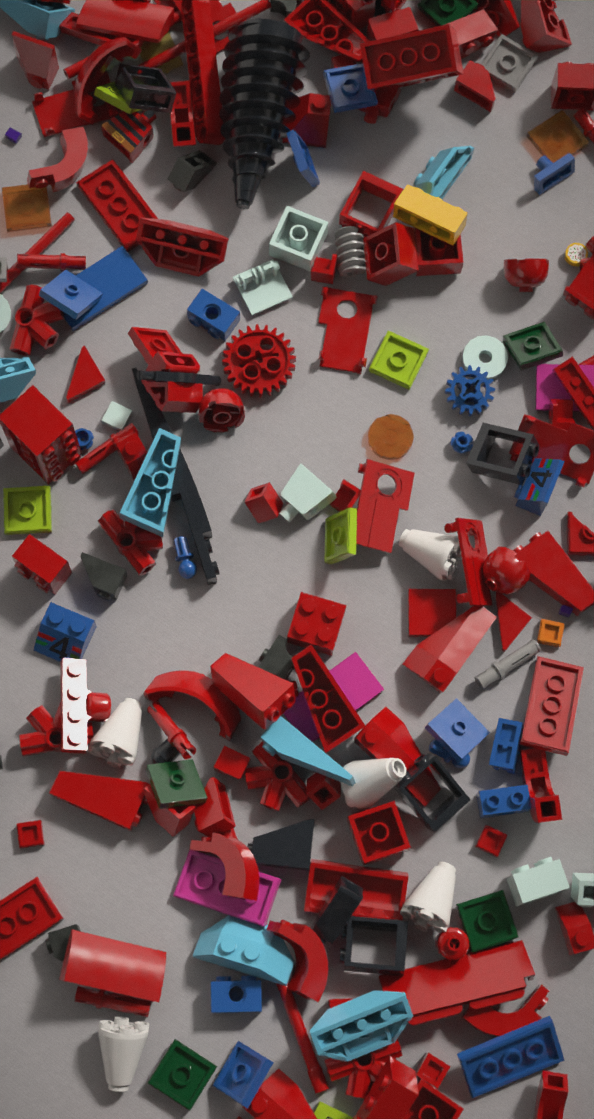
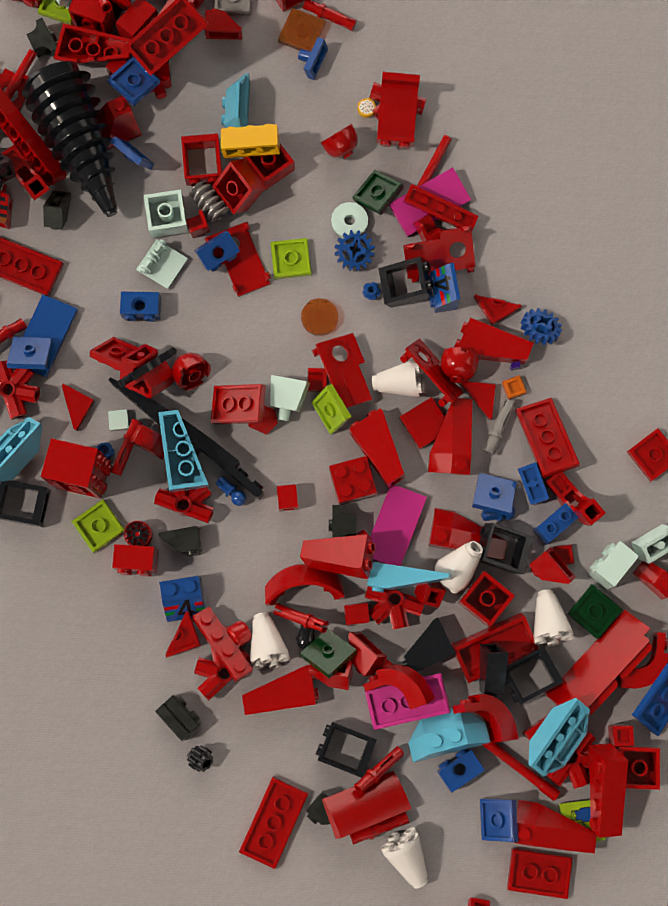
camera: 30 degrees left, 5 degrees up
(30, 834) = (248, 750): red tile -> none
(40, 677) = (184, 638): none -> red tile
(62, 541) = (138, 533): none -> red wheel
(146, 917) = (321, 750): none -> black window
(150, 939) = (373, 775): none -> red pin
(181, 246) = (86, 269): red wedge -> none
(182, 1074) = (457, 846): dark green plate -> none
(237, 599) = (287, 497): none -> red panel
(248, 472) = (238, 404): none -> red tile
(252, 342) = (180, 309): red gear -> none
(328, 704) = (398, 533): red wedge -> none
(339, 300) = (228, 247): none -> blue brick
(366, 601) = (376, 443): none -> red slope
(443, 942) = (575, 643): red head -> none
(469, 844) = (551, 568): none -> red slope

